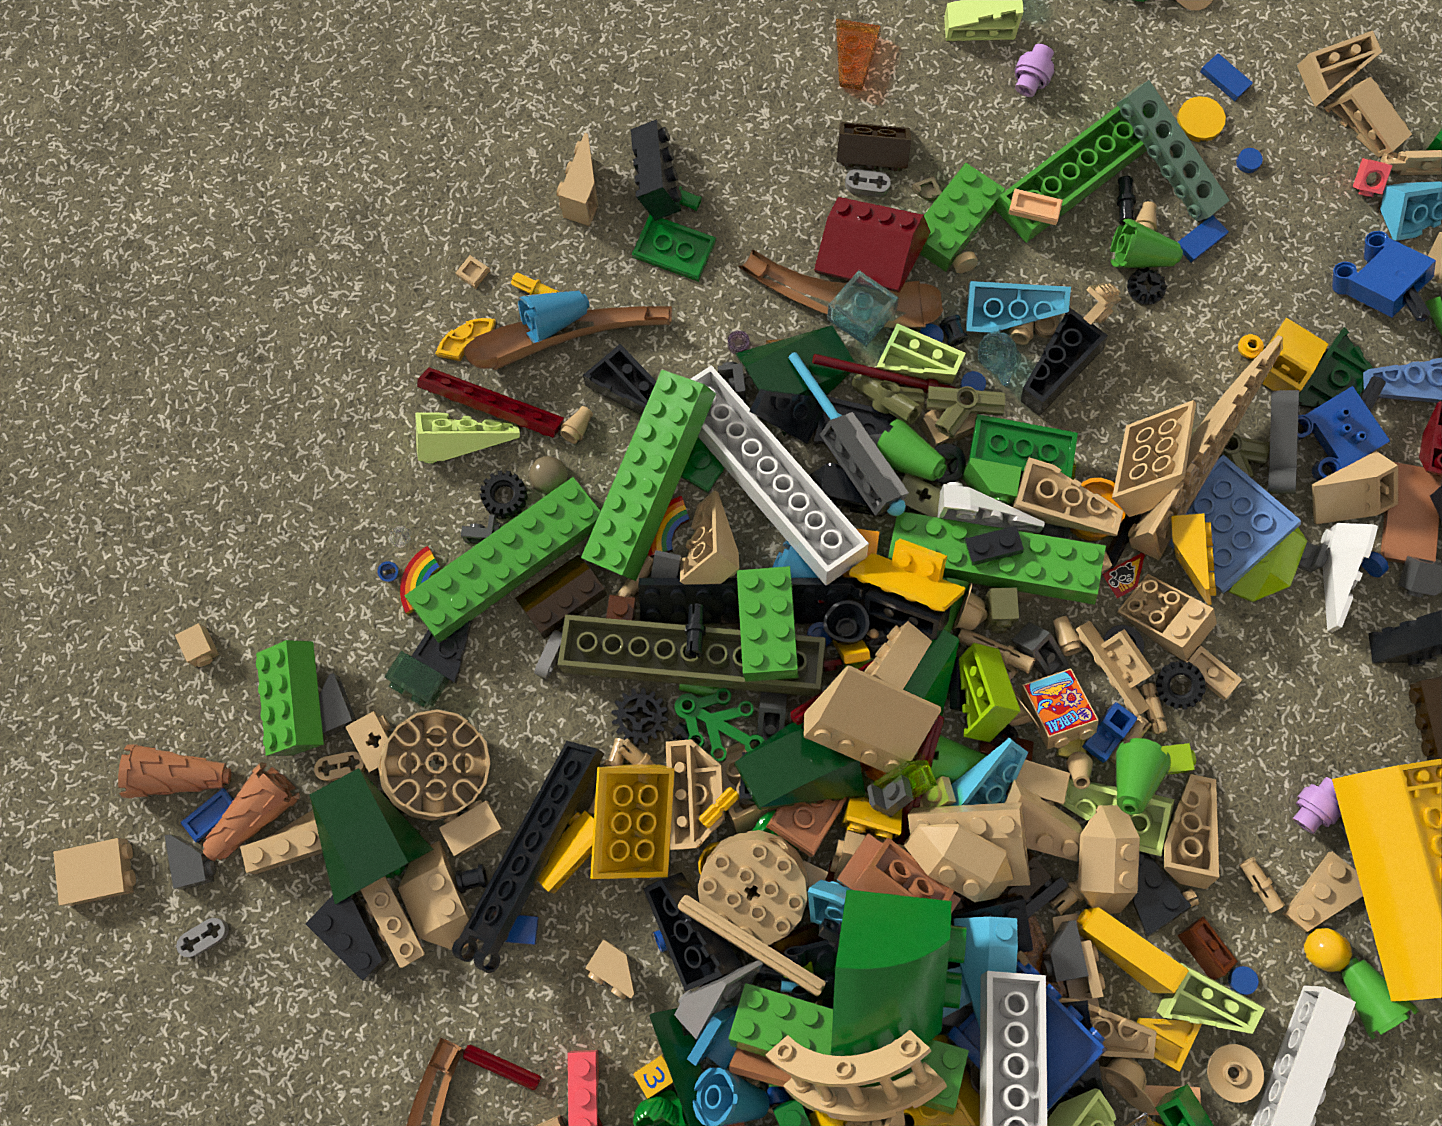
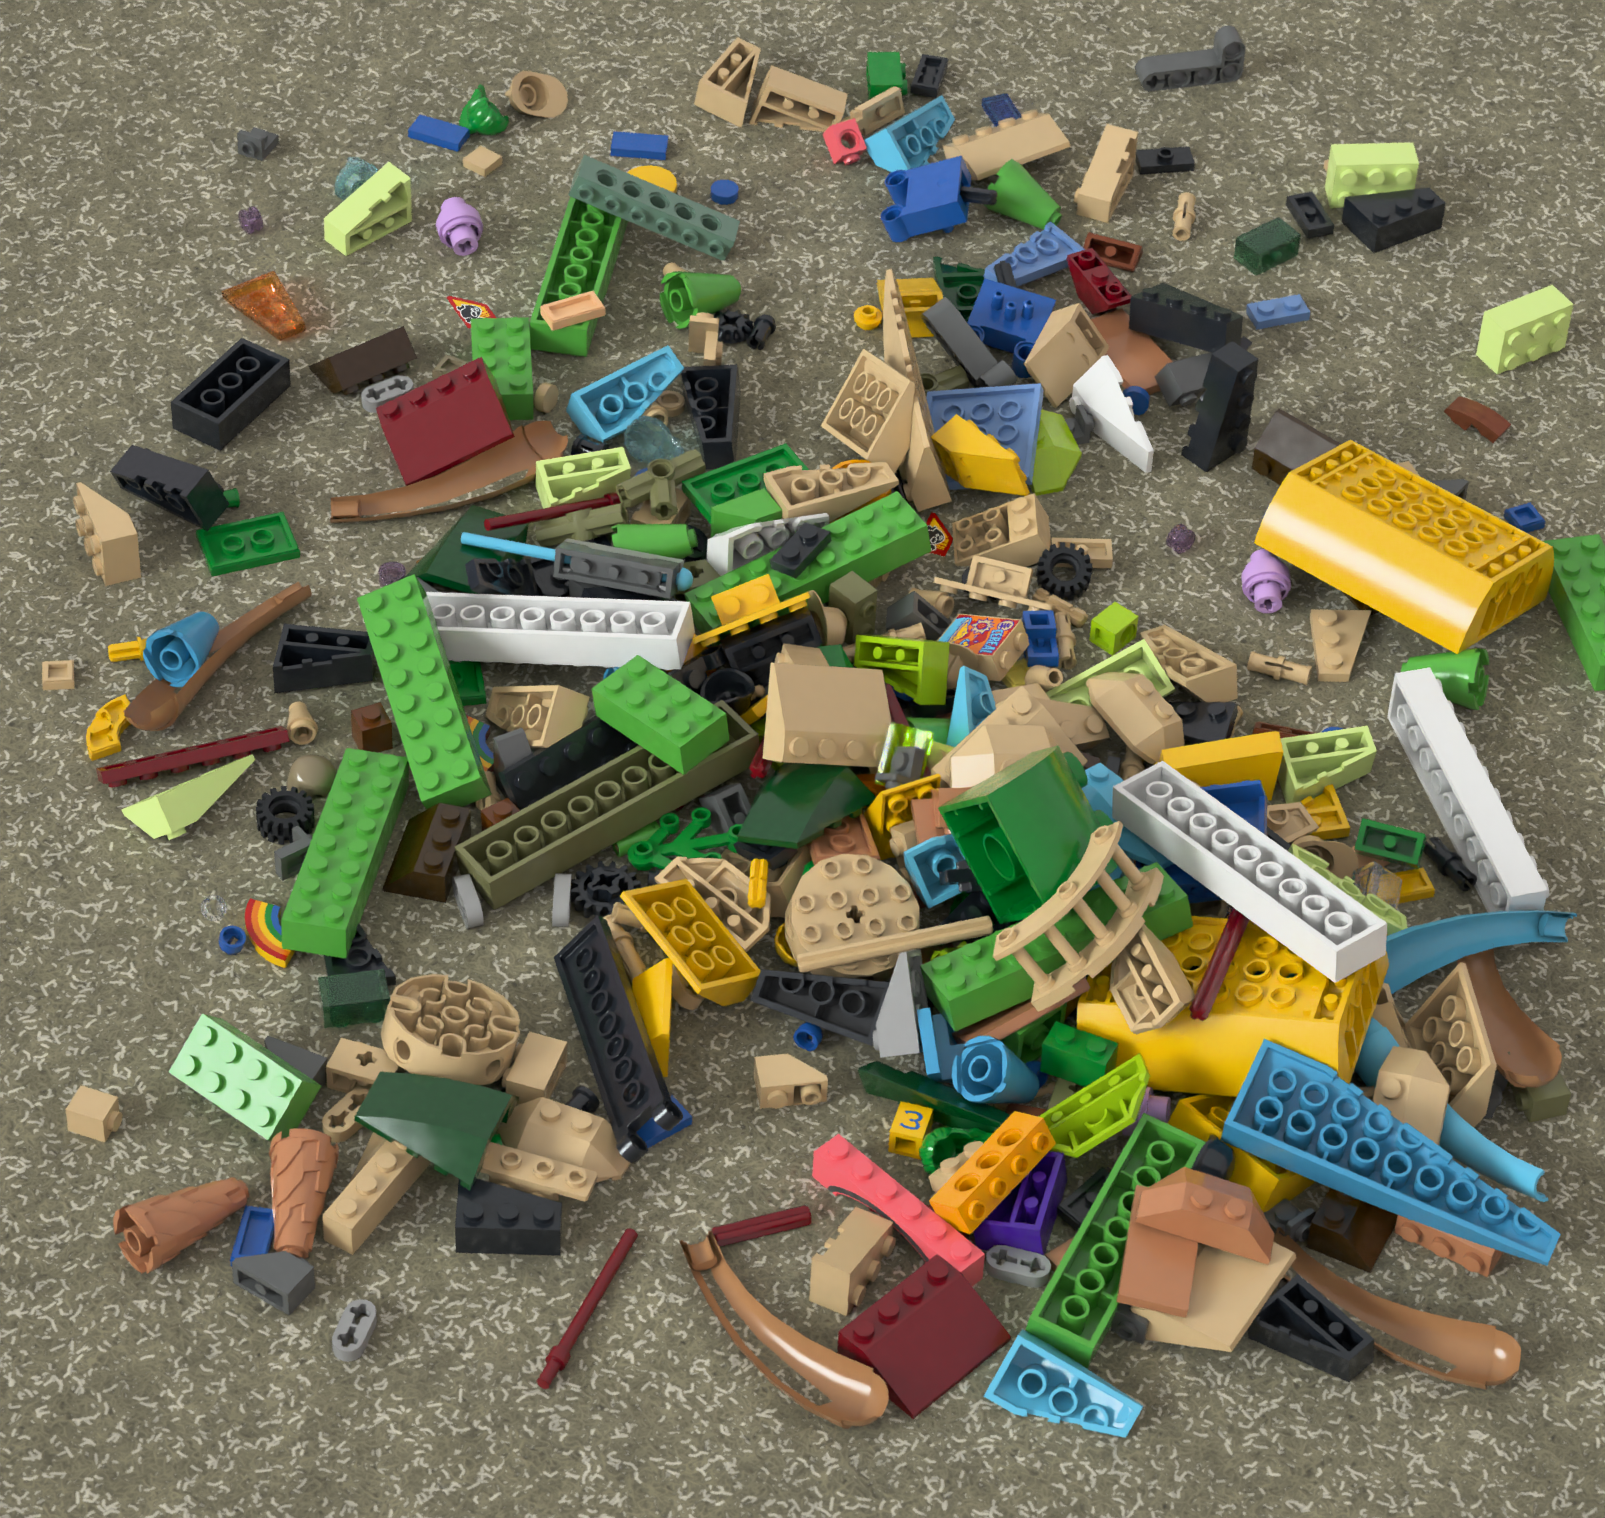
camera: 45 degrees left, 30 degrees down
(94, 872) = (183, 1350): tan brick -> none
(296, 1063) = (560, 1354): none -> dark red bar
(607, 700) = (561, 900): none -> light grey beam
(608, 465) = (372, 728): none -> reddish brown brick
(695, 631) = (597, 767): black pin -> none
(762, 115) = (230, 394): none -> black brick
(862, 308) = (492, 467): clear light blue brick -> none
(986, 148) = (470, 310): none -> sticker
(1105, 18) = (482, 161): none -> tan tile
(1126, 199) = (643, 274): black pin -> none
(1139, 773) = (1091, 632): bright green cone -> none
(1168, 304) = (763, 327): none -> black pin
(1202, 238) = (744, 265): blue tile -> none
(1249, 1073) = (1395, 800): tan dish -> none
(1294, 715) = (1180, 538): none -> bush
(1327, 950) = (1376, 672): yellow hair -> none

